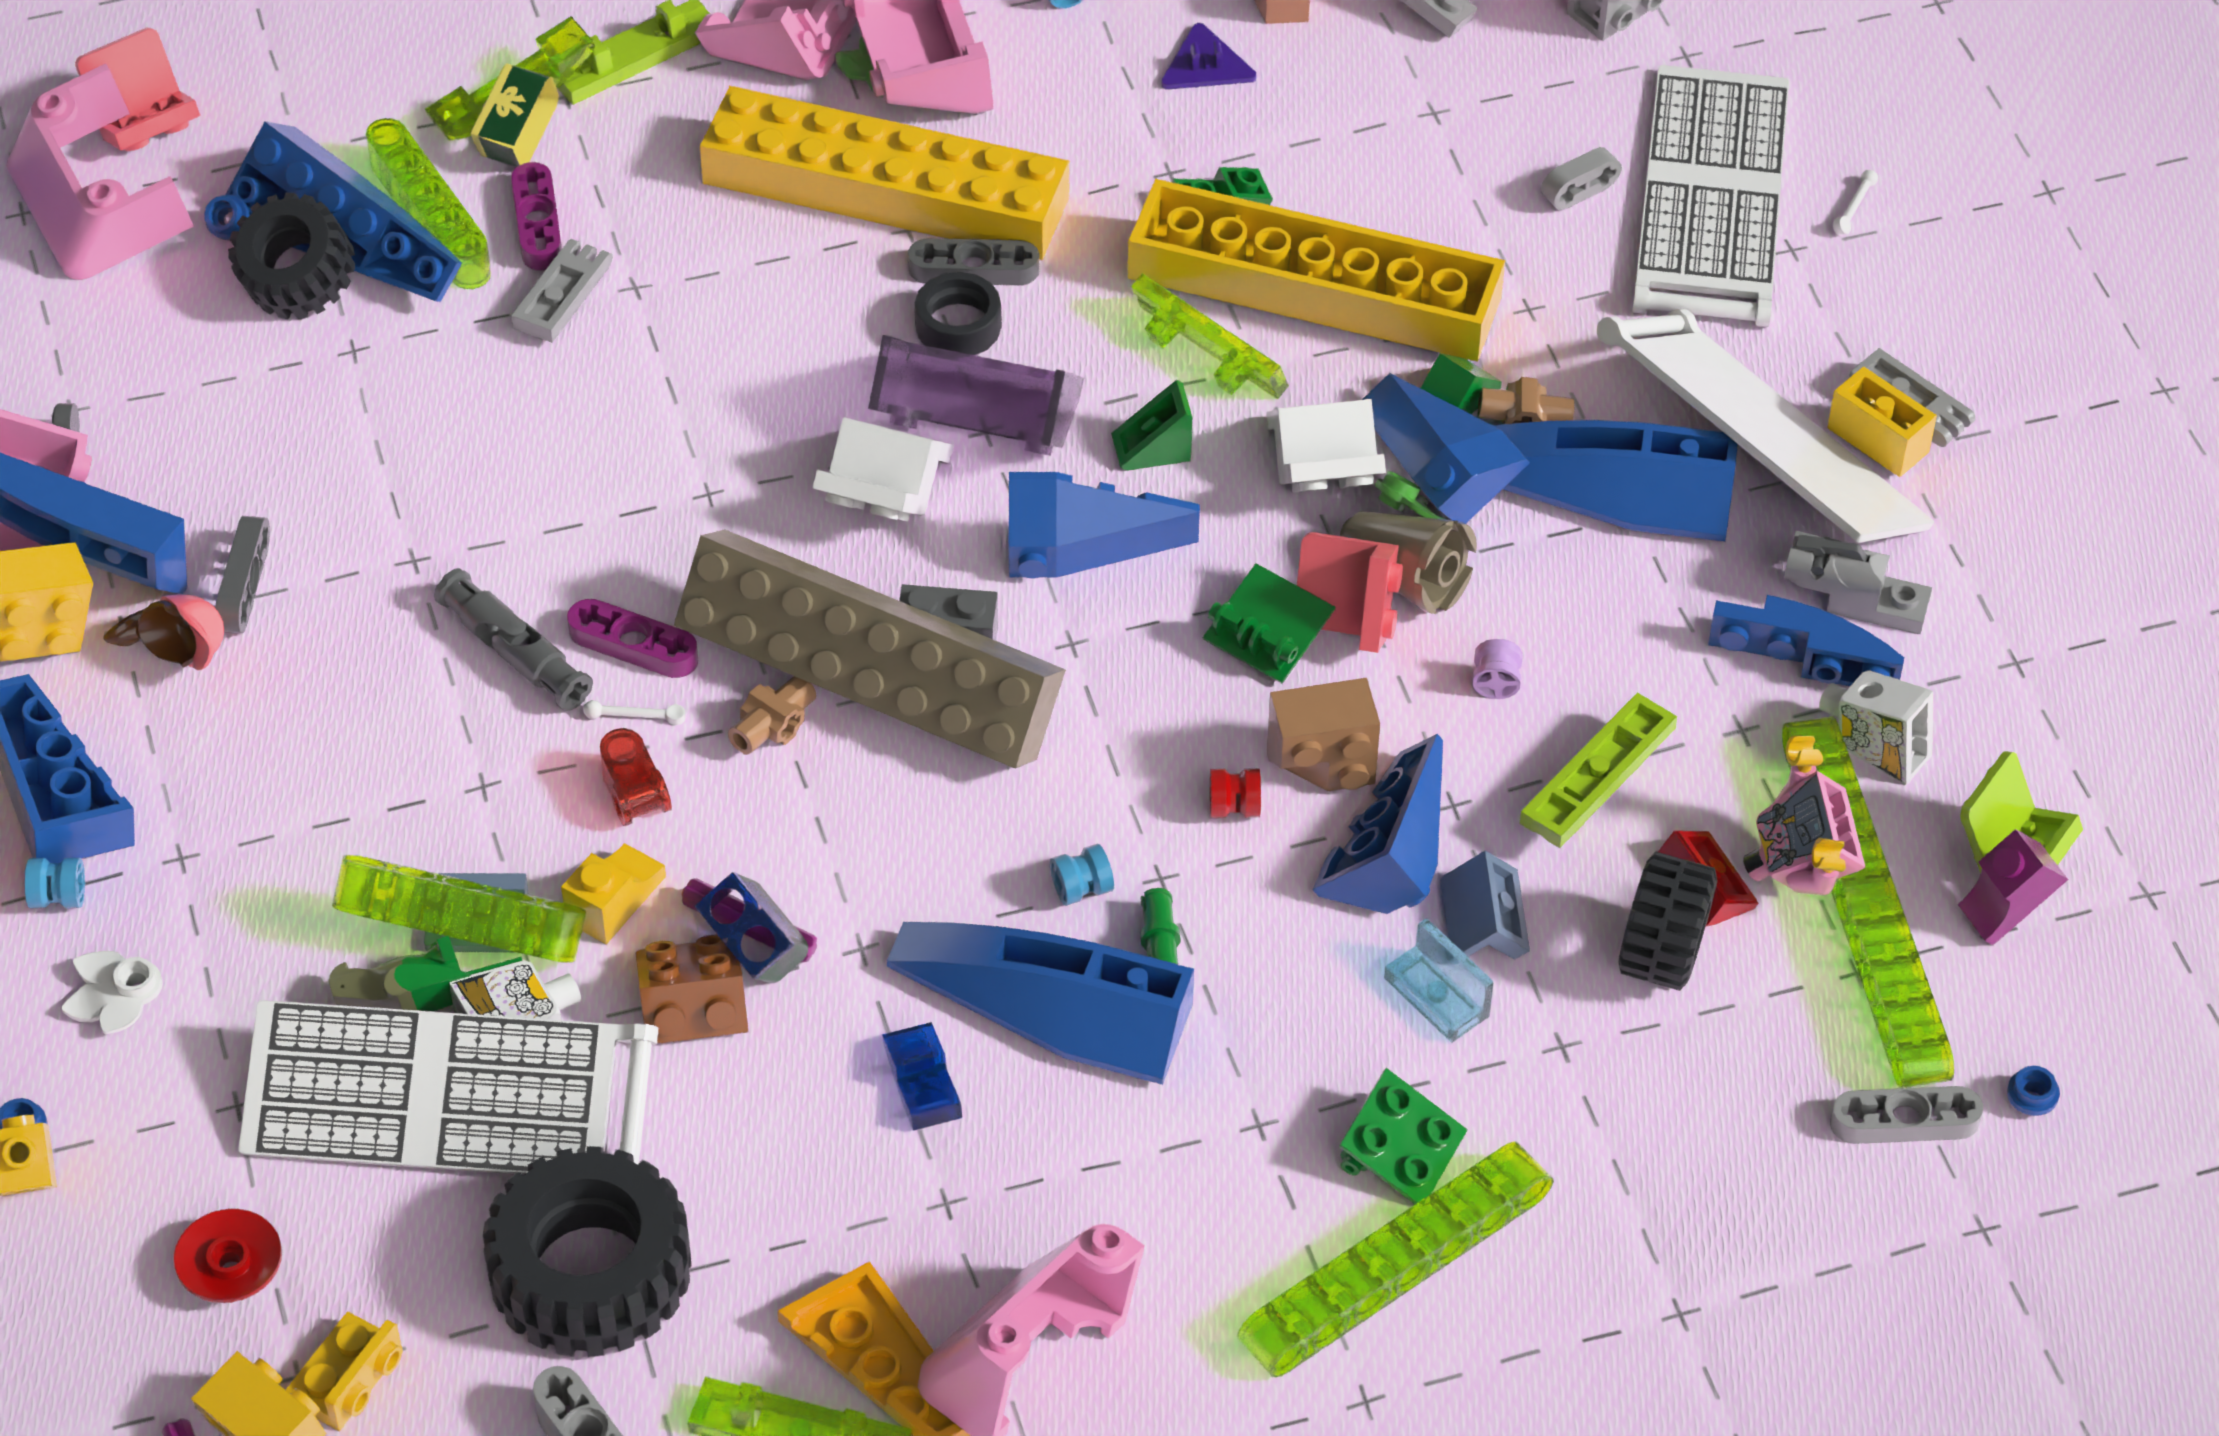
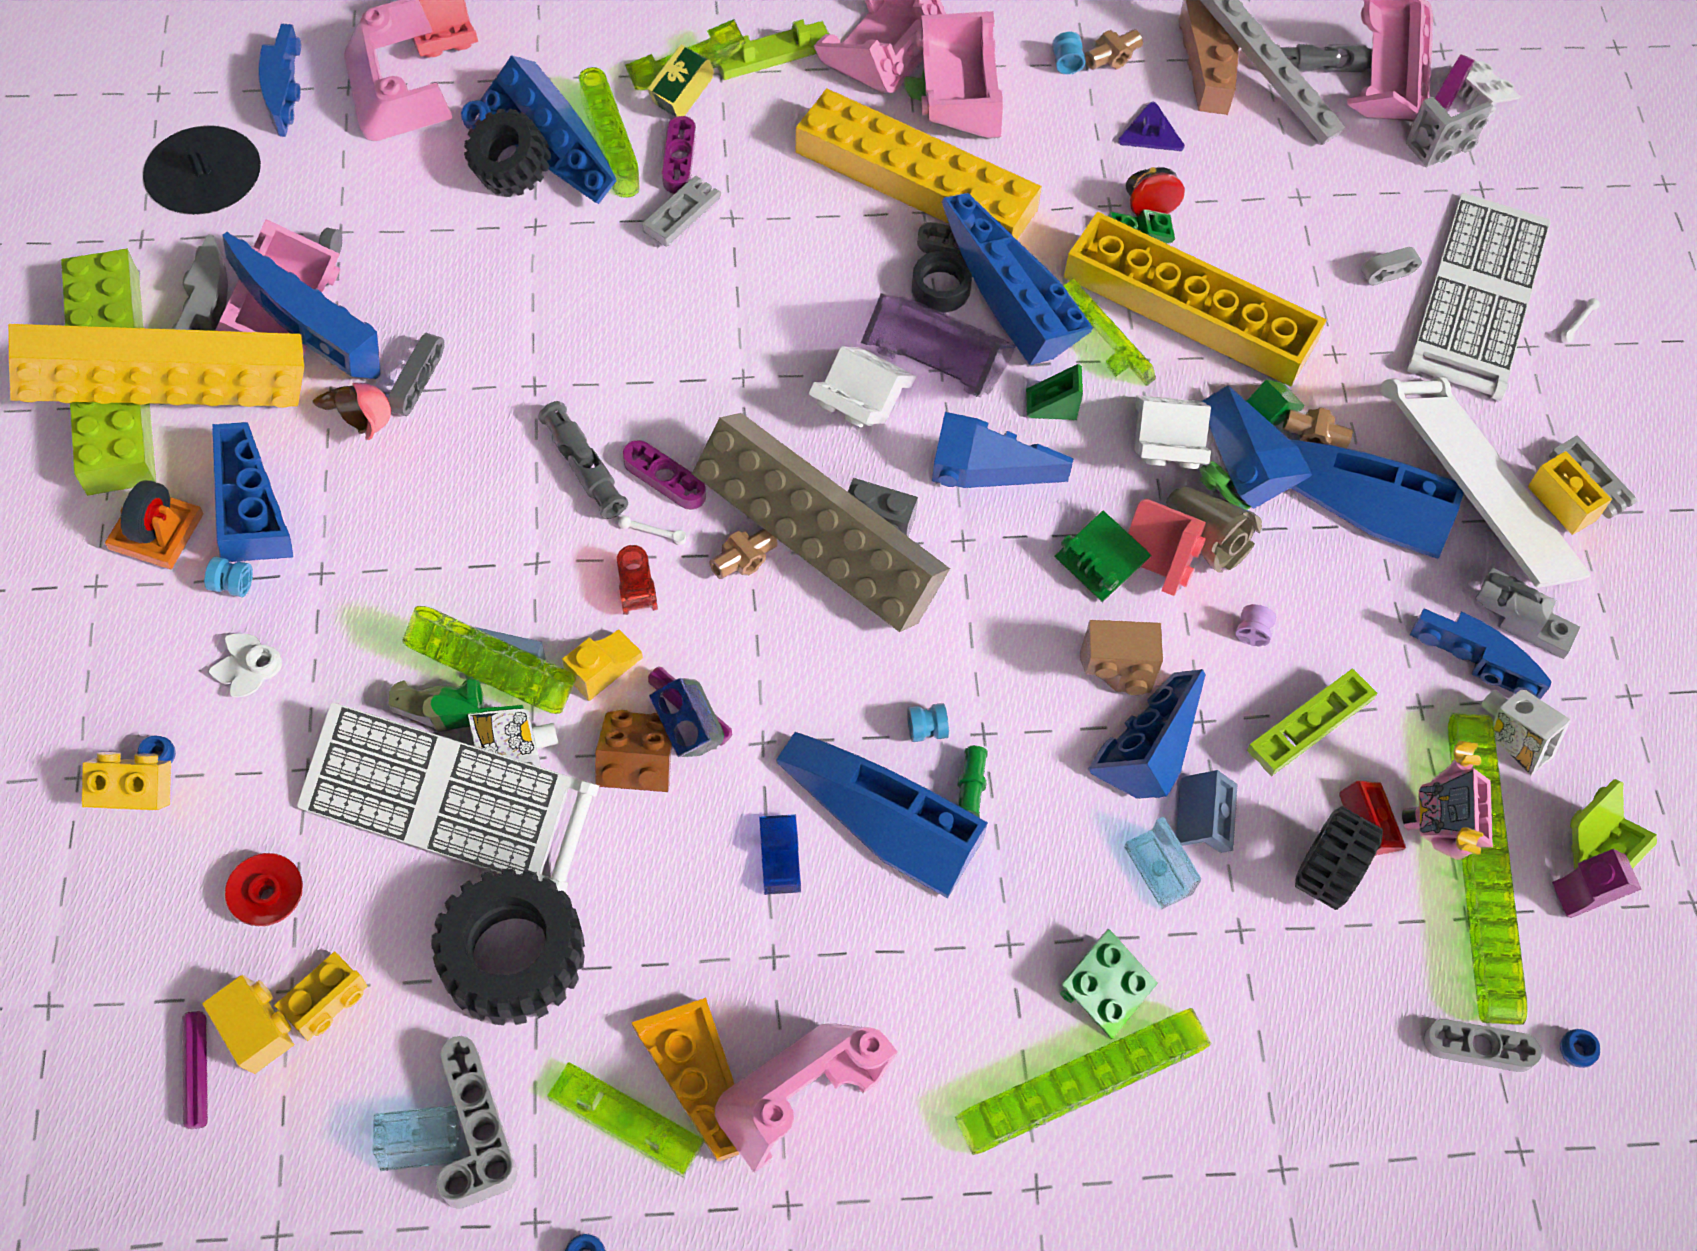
camera: 10 degrees right, 10 degrees up
(1062, 297) = (1015, 284): none -> blue wedge
(1229, 138) = (1155, 190): none -> red piece
(1235, 793) = (1050, 682): red wheel -> none

